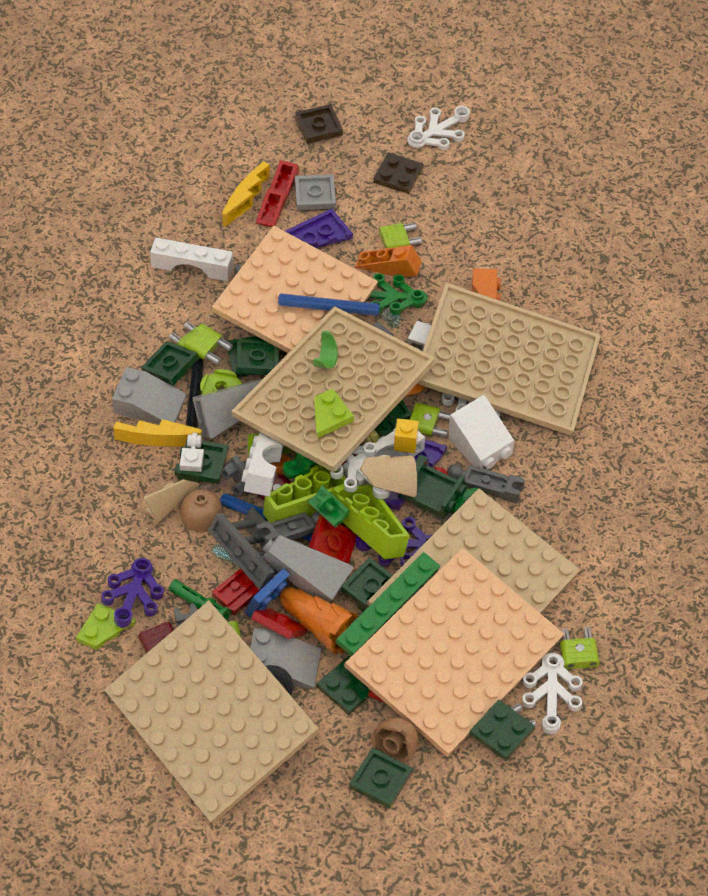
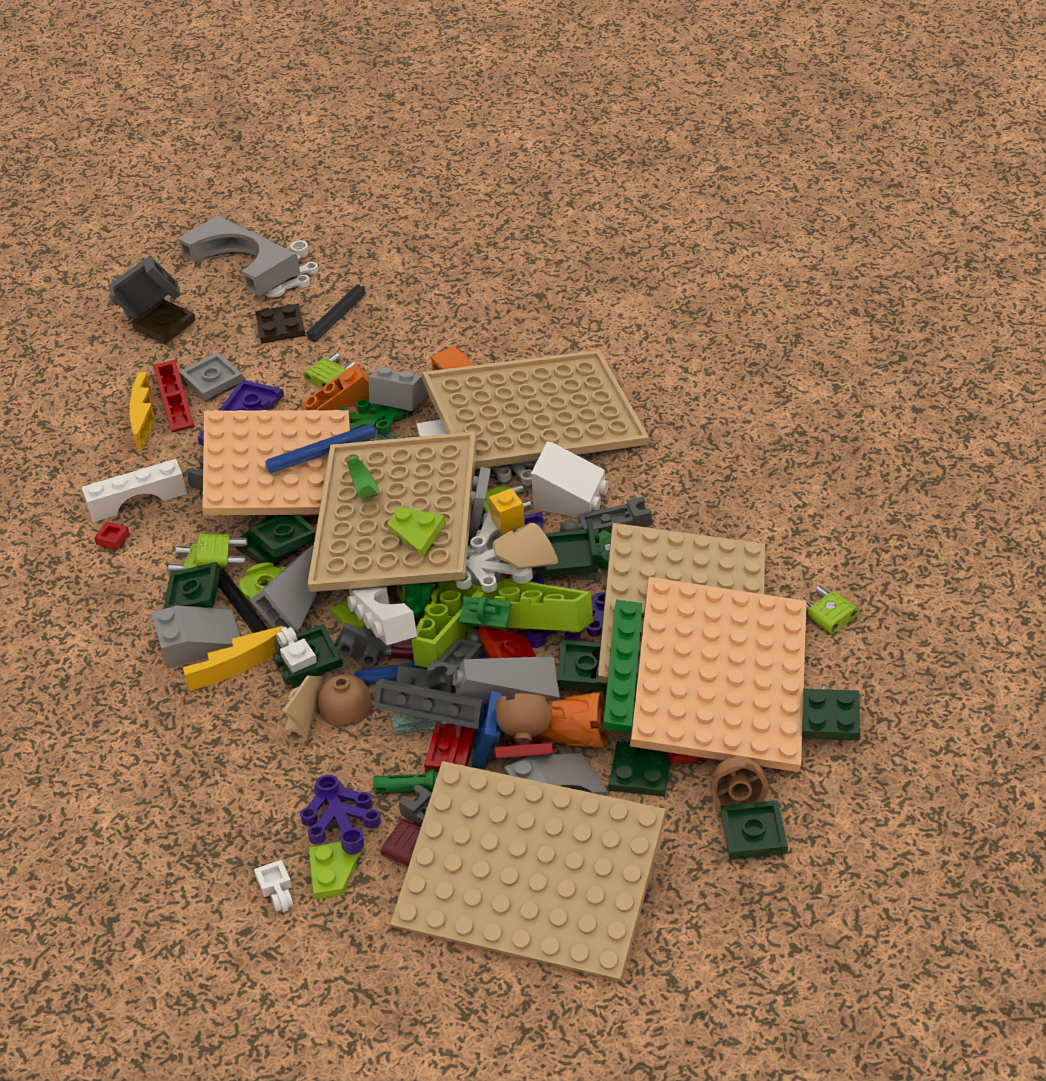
camera: 30 degrees left, 10 degrees down
(58, 611) = (272, 881): none -> white plate
(152, 286) = (111, 535): none -> red plate
(286, 602) = (523, 716): none -> medium nougat cylinder
(317, 89) = (142, 287): none -> dark grey panel
(401, 411) = (478, 499): none -> light grey plate
(427, 119) = (217, 236): none -> light grey arch
(427, 280) = (396, 388): none -> light grey slope
(444, 187) = (336, 312): none -> black axle
(552, 689) = (820, 636): white plant -> none

